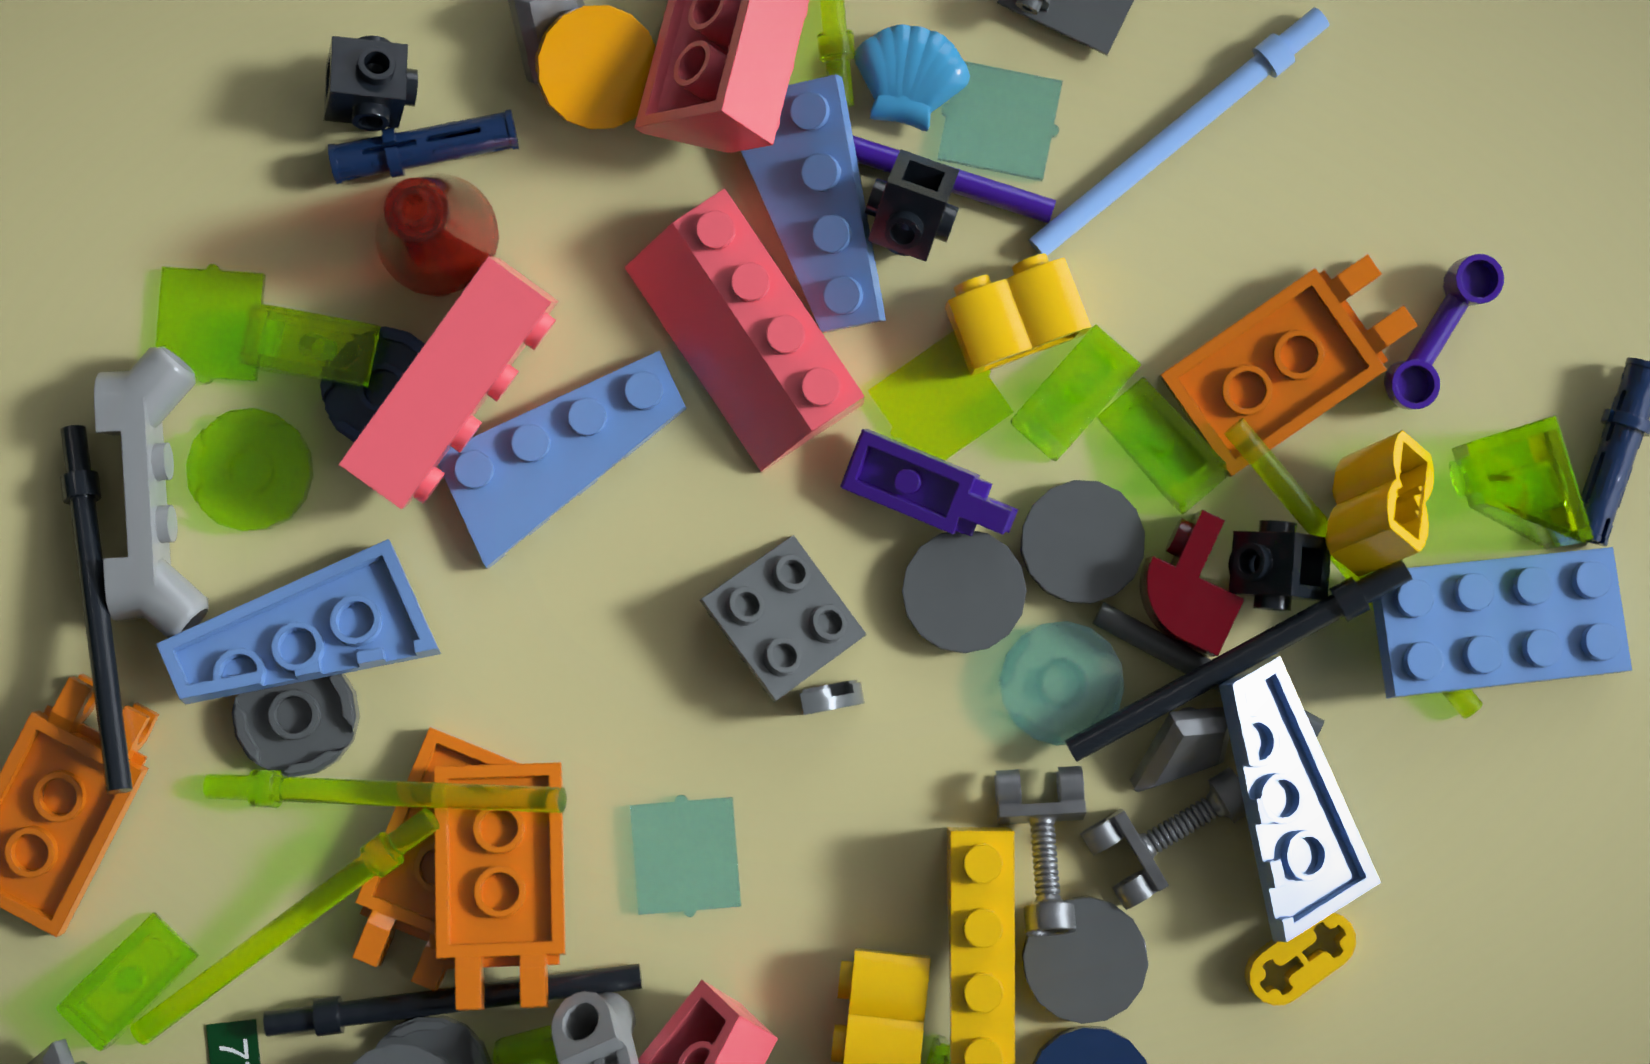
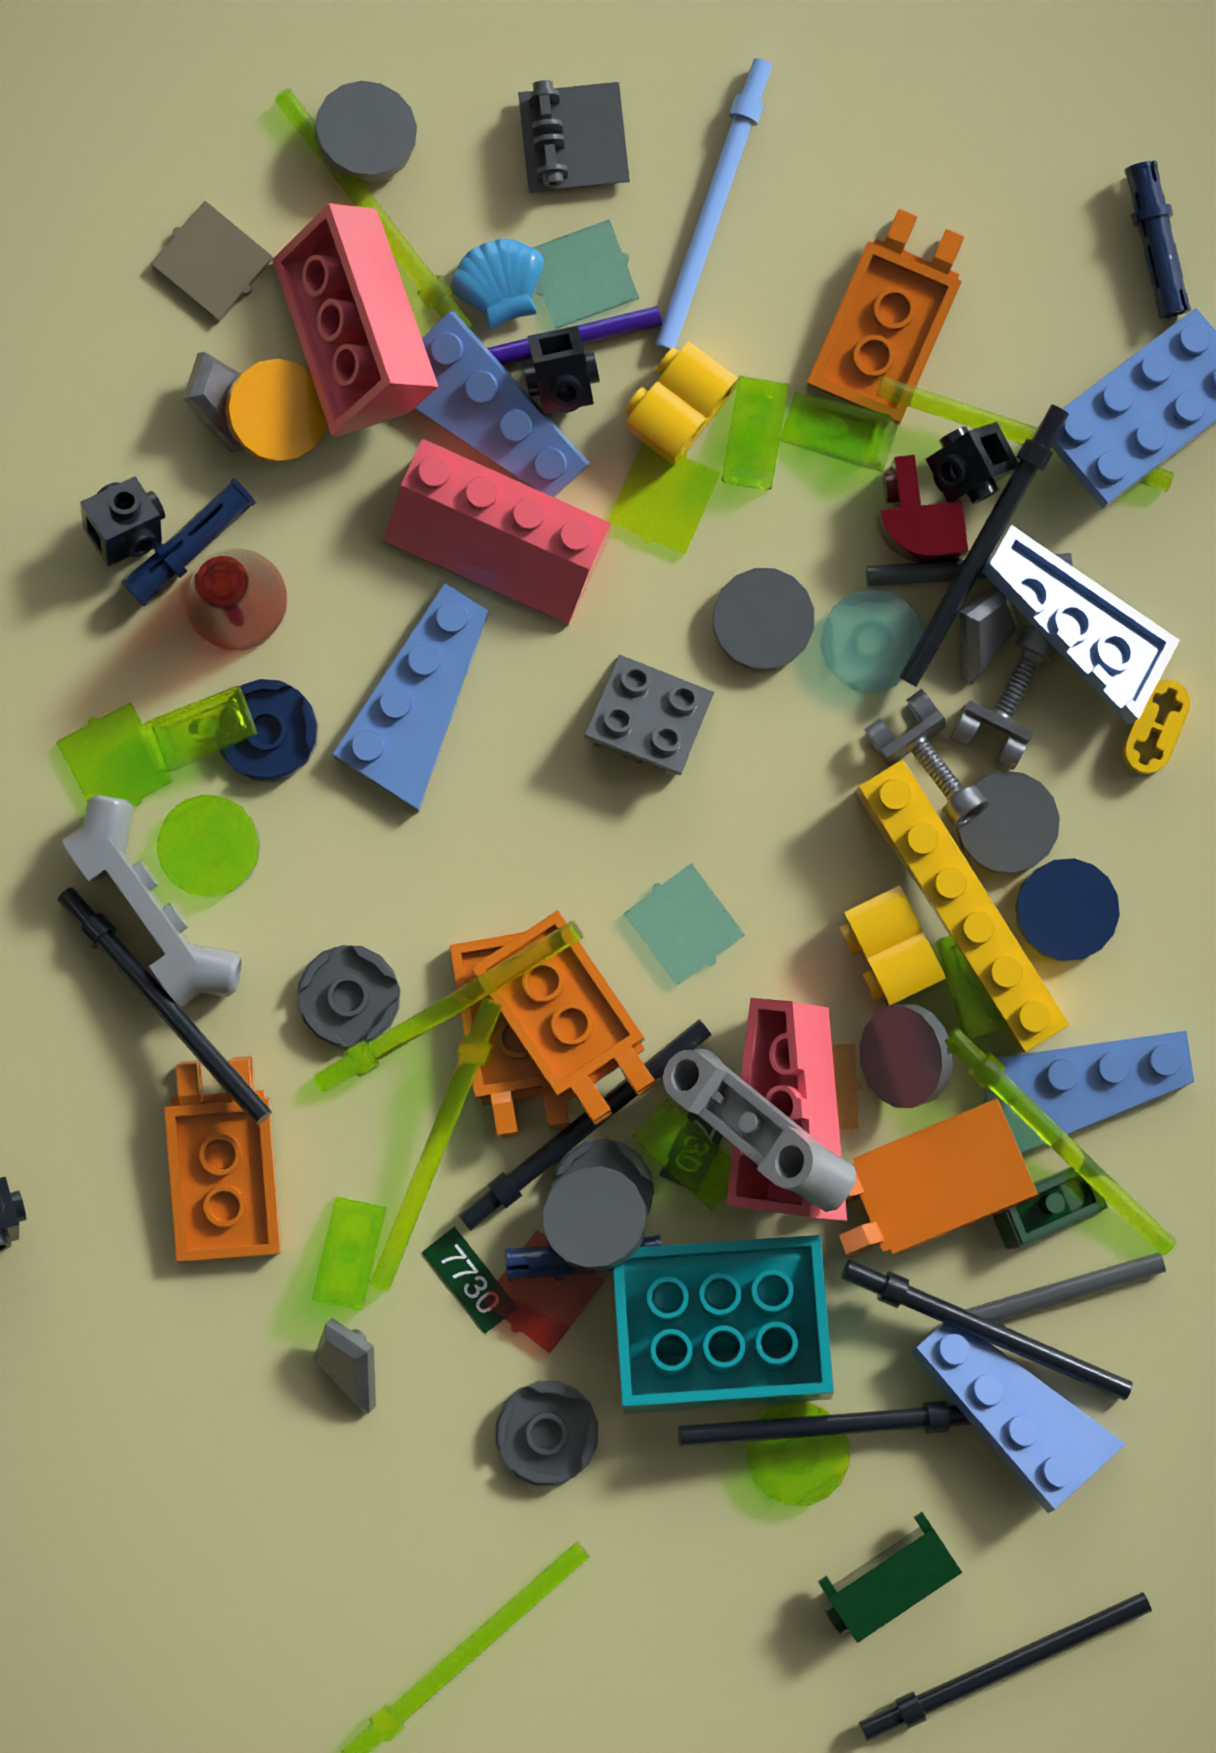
camera: 25 degrees left, 0 degrees up
(310, 629) = (326, 923): medium blue wing -> none
(449, 382) = (316, 692): coral wedge -> none
(831, 697) = (716, 750): dark grey tile -> none
(923, 486) = (690, 562): dark purple hinge -> none
(1082, 541) = (825, 533): dark grey tile -> none
(1380, 504) = (1015, 376): yellow brick -> none
(1467, 283) = (980, 187): dark purple bar -> none
(1524, 483) = (1105, 301): clear neon green slope -> none

